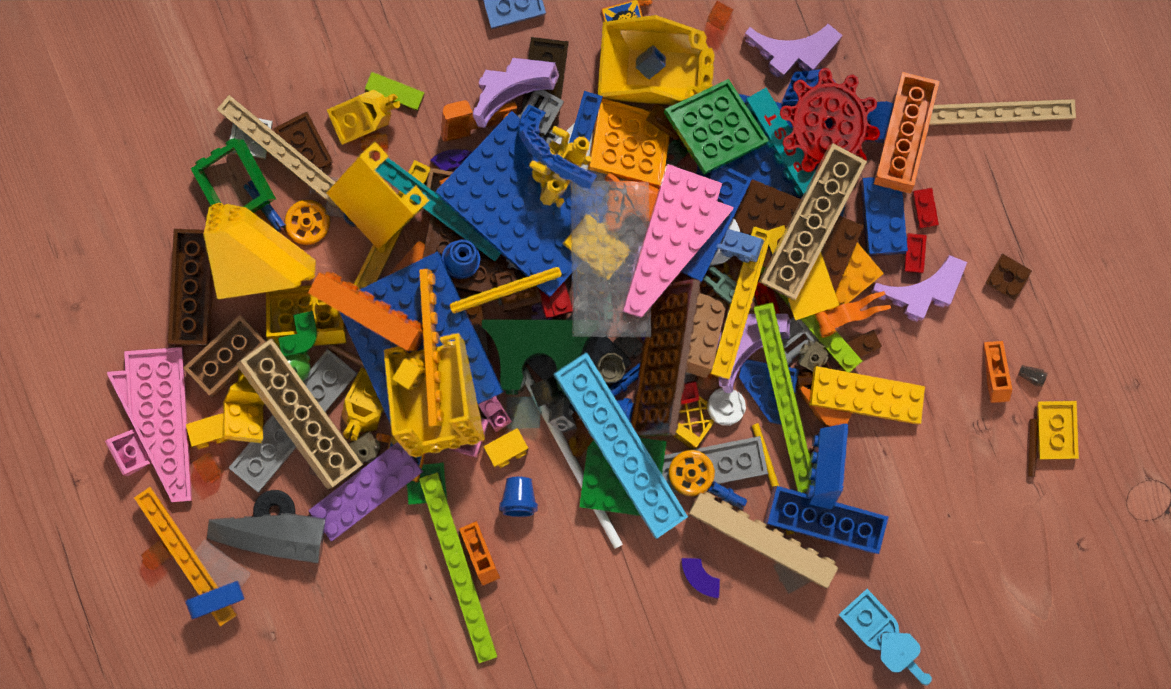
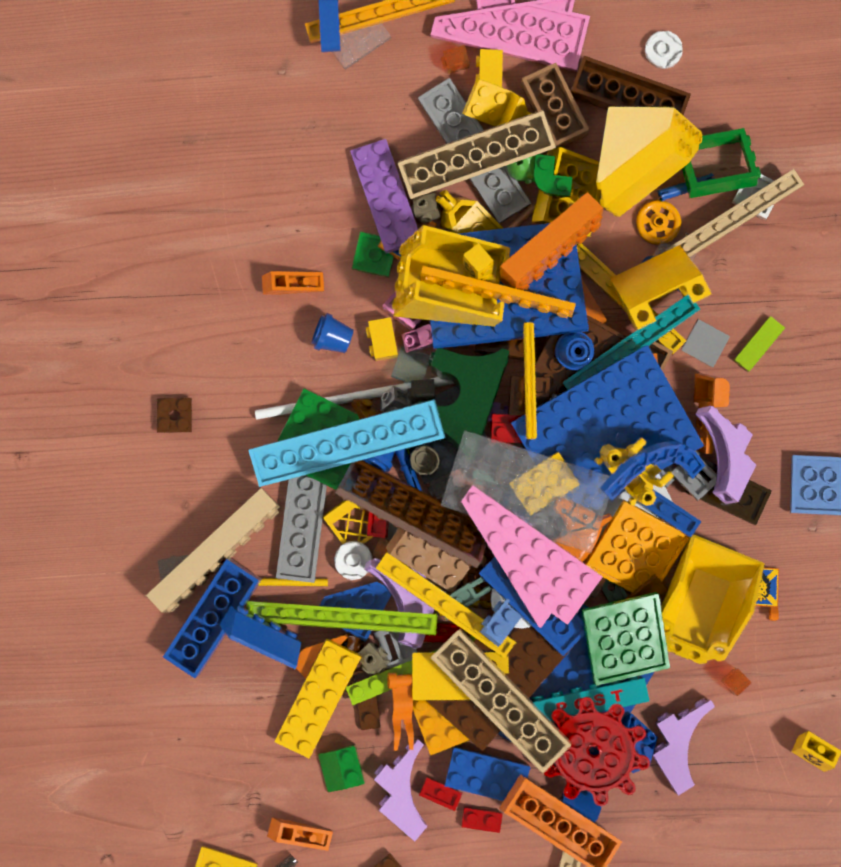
camera: 115 degrees right, 0 degrees up
(134, 270) = (663, 49): none -> white tile
(271, 498) = (391, 97): black wheel -> none
(277, 535) = (371, 100): dark grey wedge -> none
(304, 137) = (739, 244): reddish brown plate -> none
(362, 115) = (745, 304): yellow plate -> none
(380, 139) = (714, 308): clear orange brick -> none
(409, 141) = (705, 343): none -> light grey sticker
(450, 159) = (676, 375): dark purple tile -> none
(458, 567) = (286, 258): lime plate -> none
(650, 62) = (710, 598): panel -> none
(656, 629) = (164, 409): none -> reddish brown piece
(679, 461) = (312, 516): light orange plate -> none
(699, 578) = (199, 481): dark purple tile -> none
(727, 495) = (268, 532): blue pin -> none
(871, 619) = (105, 629): medium azure plate -> none
(923, 352) = (341, 768): none -> green slope
(1032, 448) = (215, 843): reddish brown bar -> none

